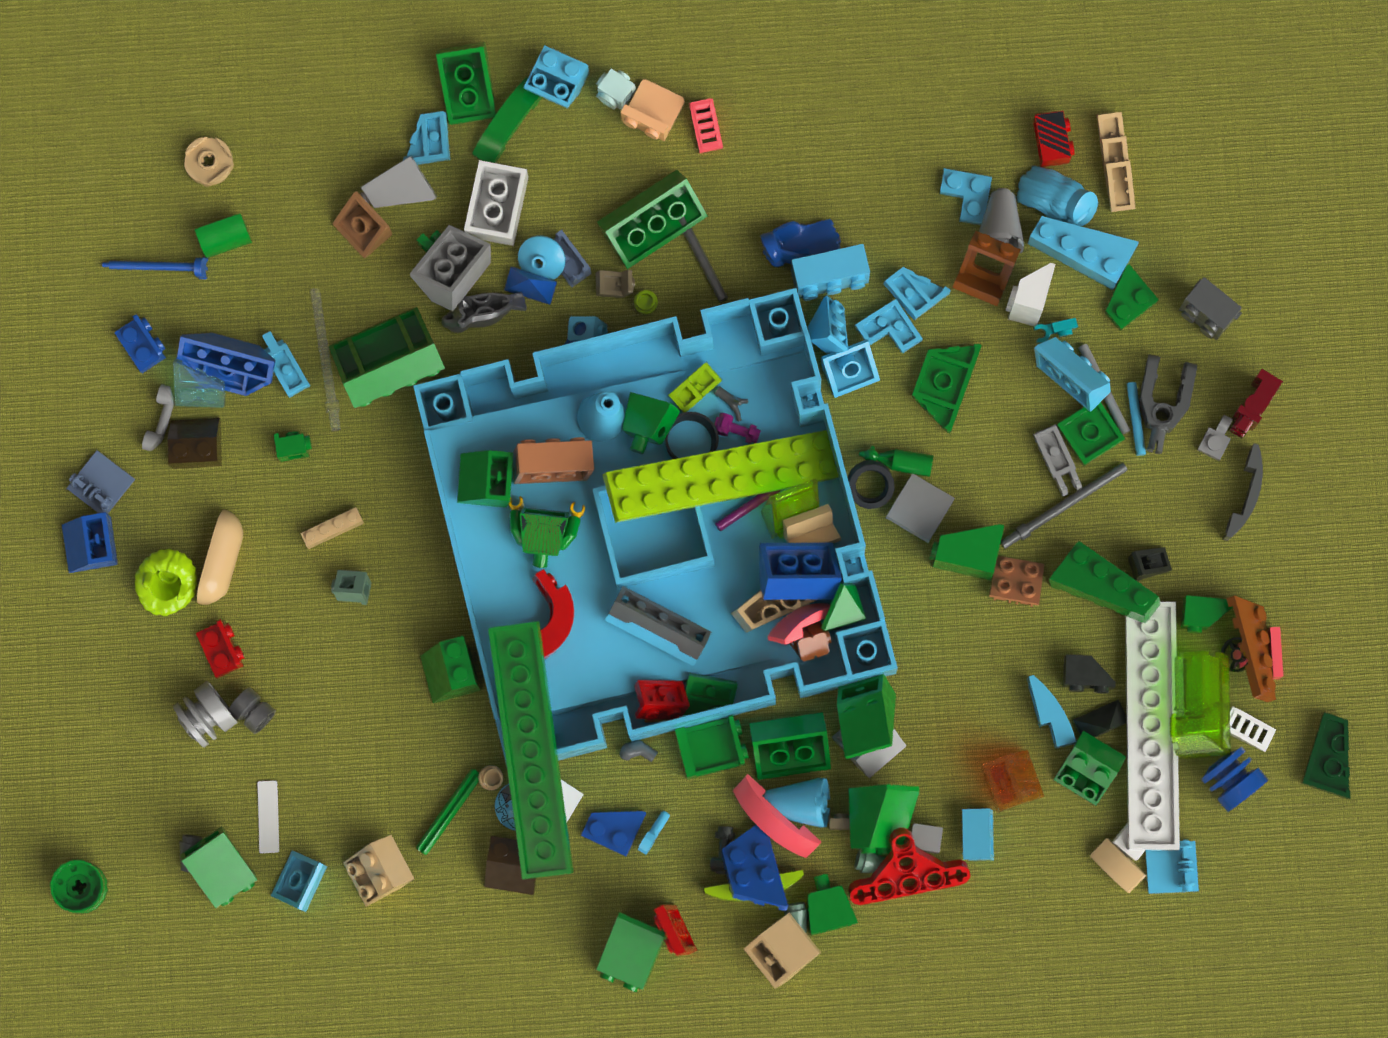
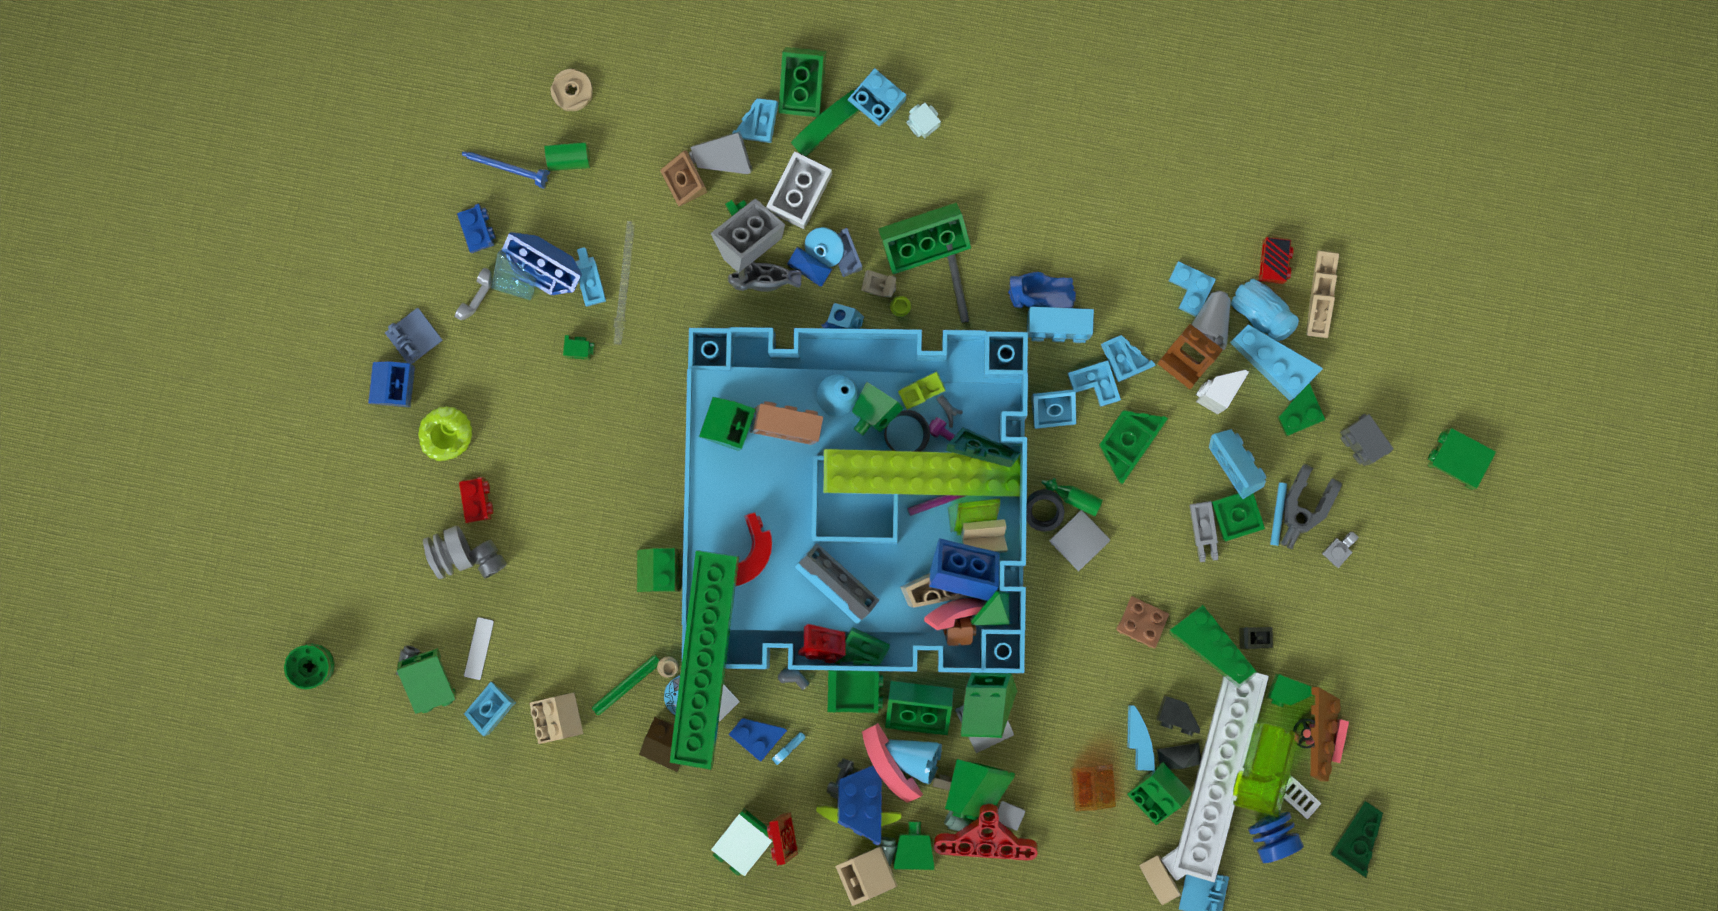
camera: 15 degrees right, 5 degrees up
(195, 443) = (499, 323): dark brown slope -> none
(220, 558) = (495, 425): tan brick -> none
(332, 528) = (593, 425): tan piece -> none
(351, 586) = (591, 472): sand green brick -> none
(386, 358) = (673, 297): green slope -> none
(543, 530) = (763, 480): green torso -> none
(652, 110) = (949, 146): light nougat bracket -> none
(704, 105) = (990, 153): coral slope -> none
(778, 431) = (982, 448): none -> dark green wing
(828, 327) = (1046, 369): medium azure slope -> none
(969, 551) = (1110, 589): green slope -> none
(977, 834) = (1052, 823): medium azure hinge -> none
(1024, 530) = (1160, 582): dark grey bar -> none
(1063, 329) = (1239, 422): teal plate -> none
(1109, 399) = (1261, 492): light grey bar -> none
(1250, 412) = (1382, 531): dark red hips -> none
(1255, 466) = (1366, 580): dark grey slope -> none
(1322, 300) = (1461, 457): none -> green panel

